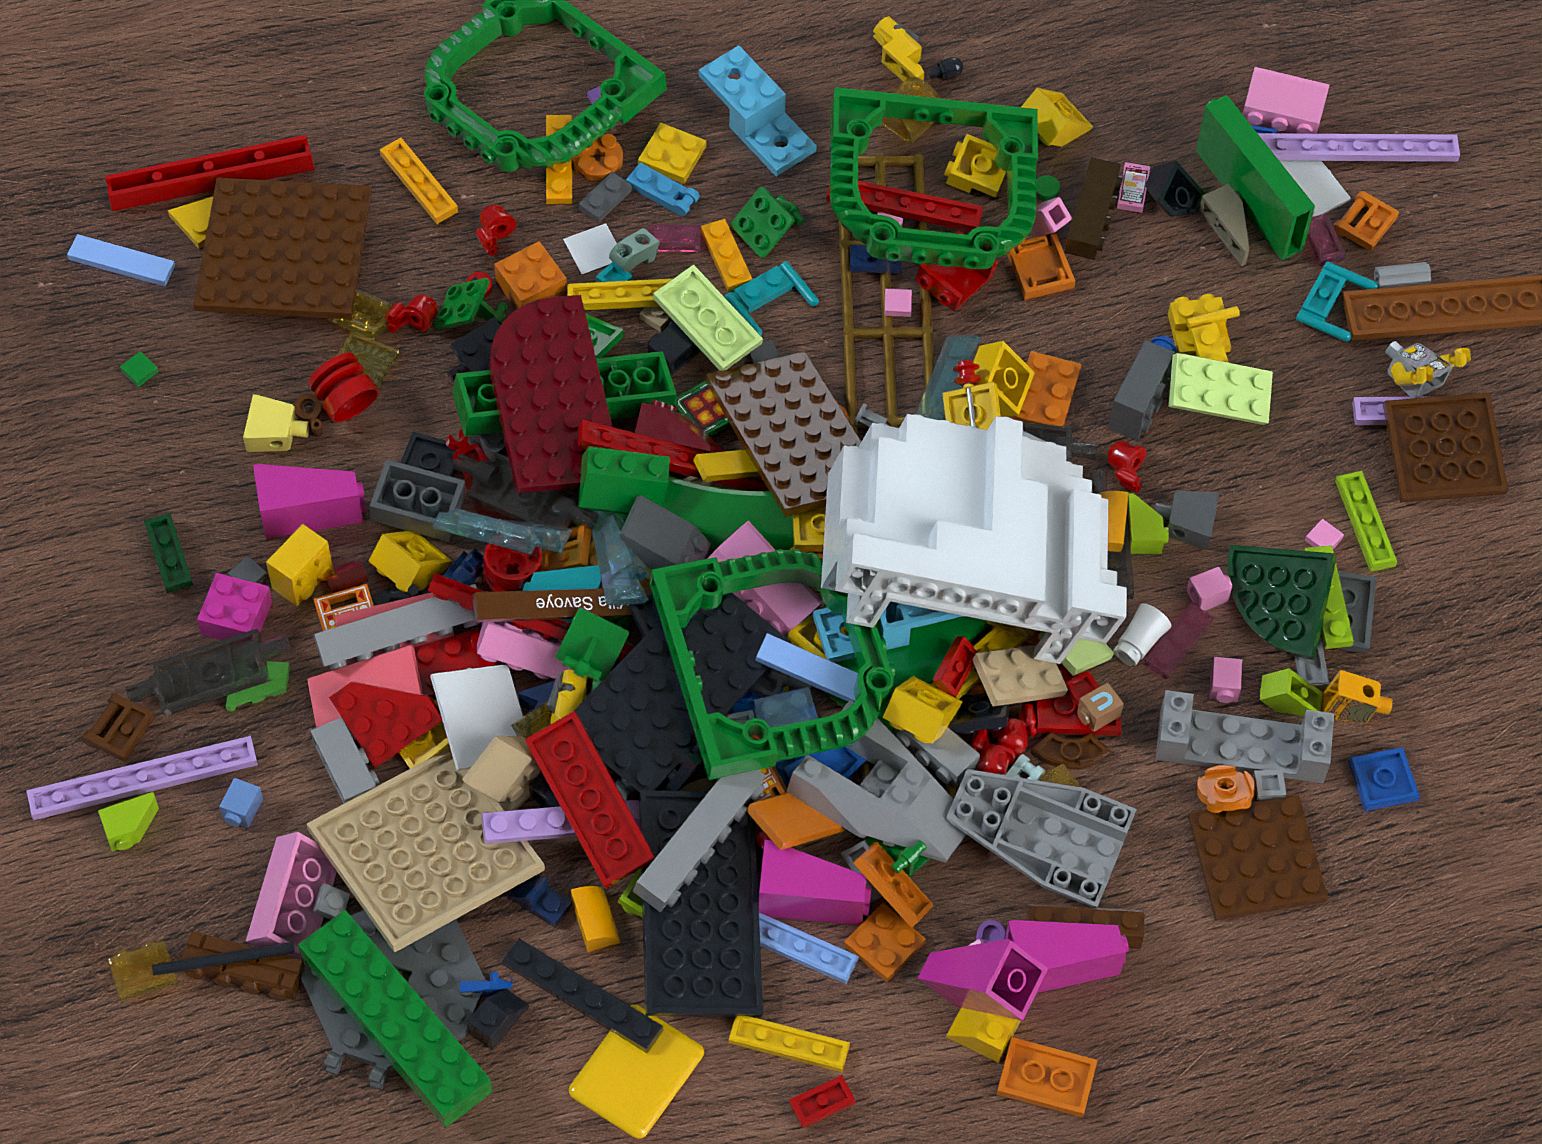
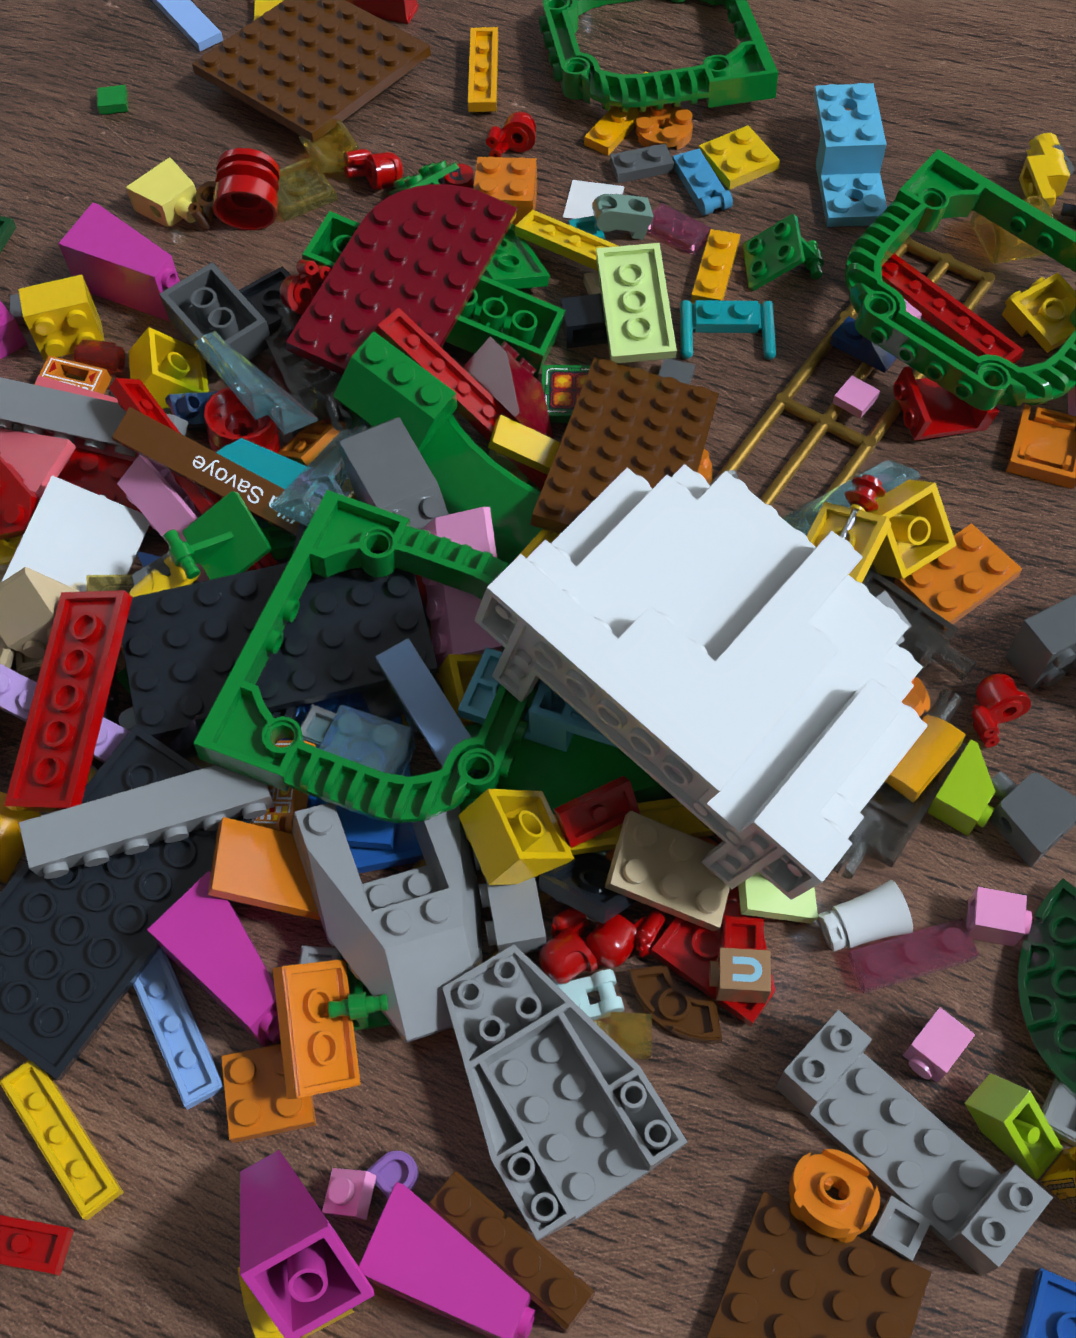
camera: 40 degrees right, 0 degrees up
(481, 443) = (300, 288): none -> red piece

